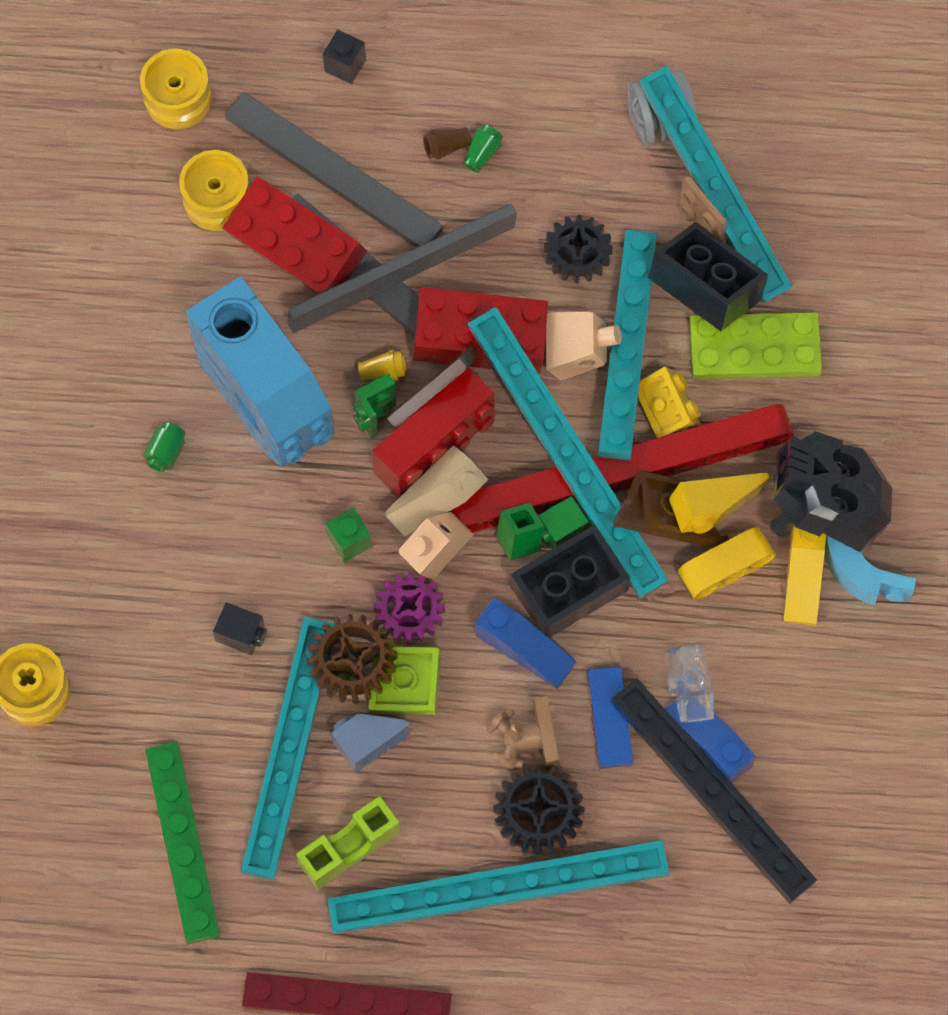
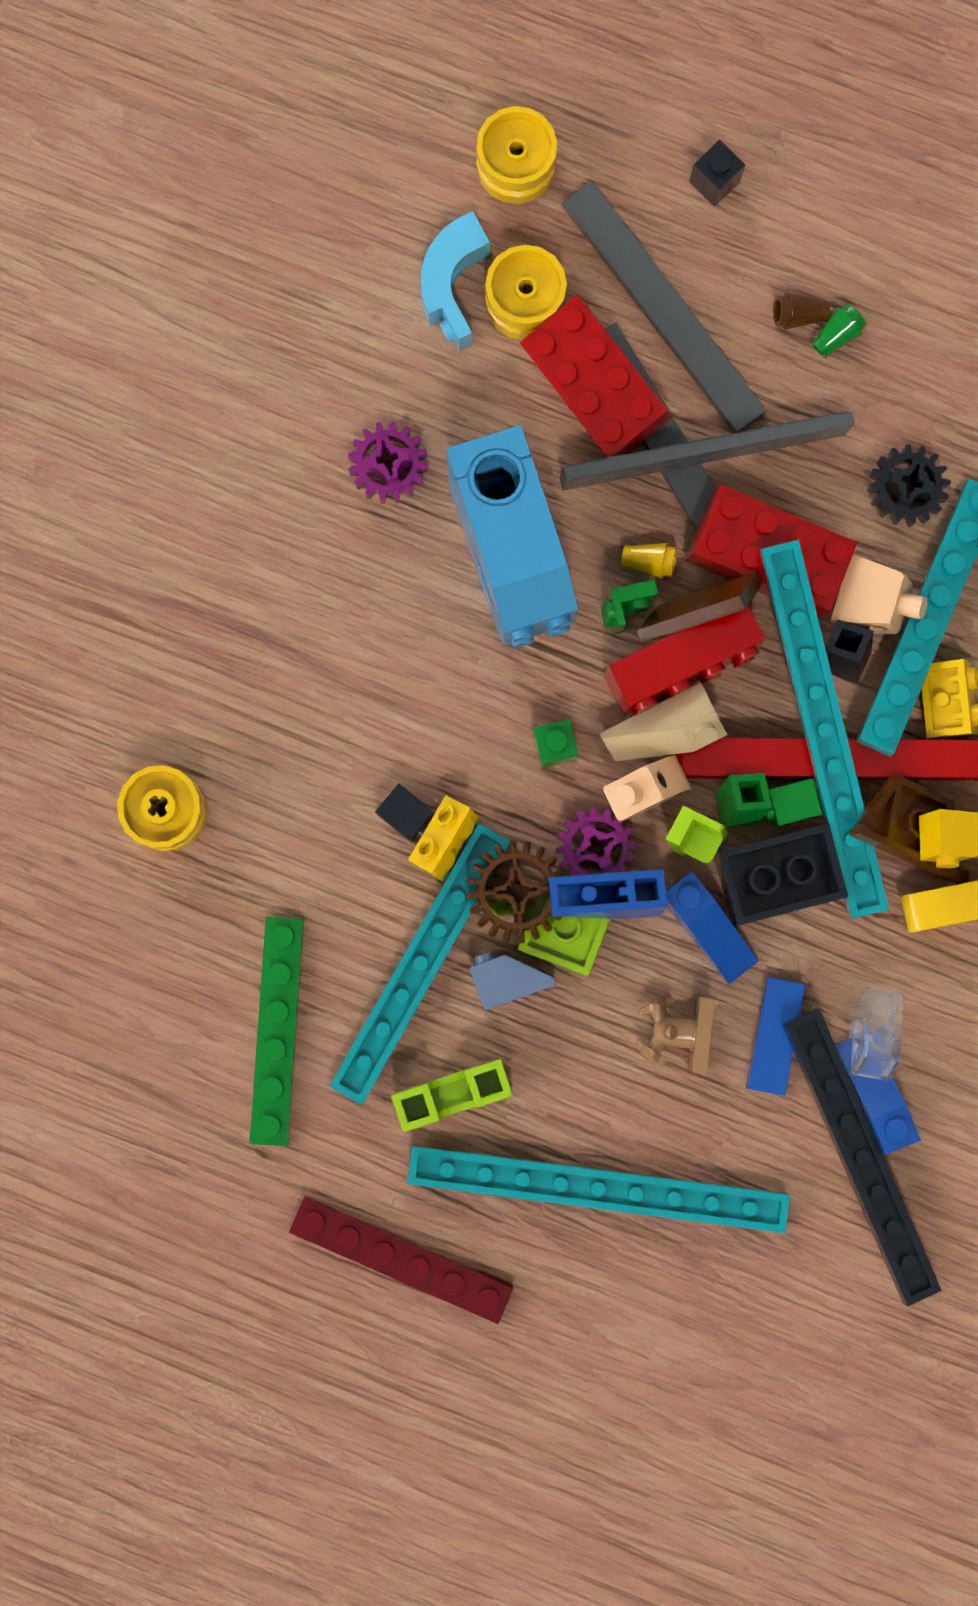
camera: 15 degrees right, 15 degrees up
(131, 365) = (401, 458): none -> magenta gear
(143, 180) = (449, 254): none -> medium azure arch
(164, 447) = (383, 579): green brick -> none
(278, 637) = (444, 838): none -> yellow bracket
(431, 634) = (609, 895): none -> blue slope
(488, 567) = (696, 836): none -> lime panel
(524, 809) = (662, 1135): black gear -> none
(570, 388) = (849, 650): none -> black brick

